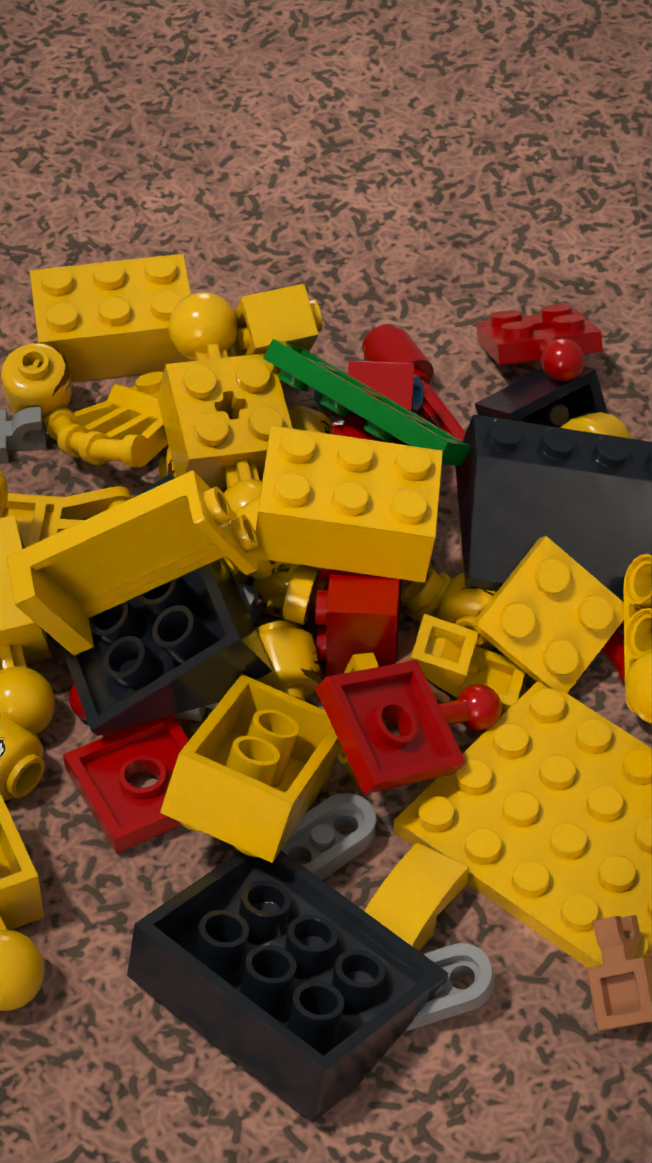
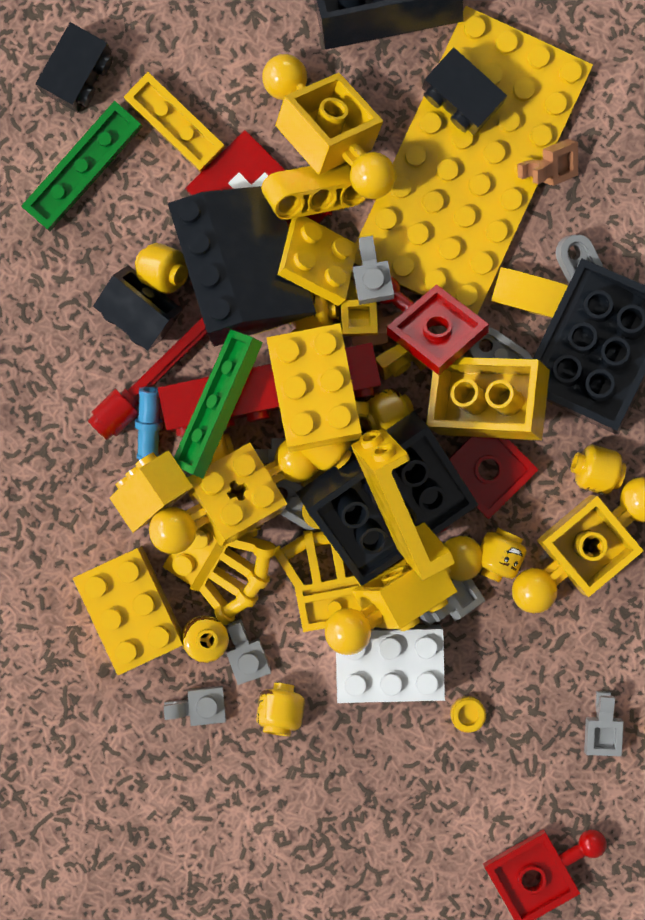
camera: 105 degrees left, 40 degrees up
(81, 928) = (598, 469): none -> yellow head
(501, 676) = (372, 277): none -> light grey plate
(555, 337) = (89, 328): red plate -> none

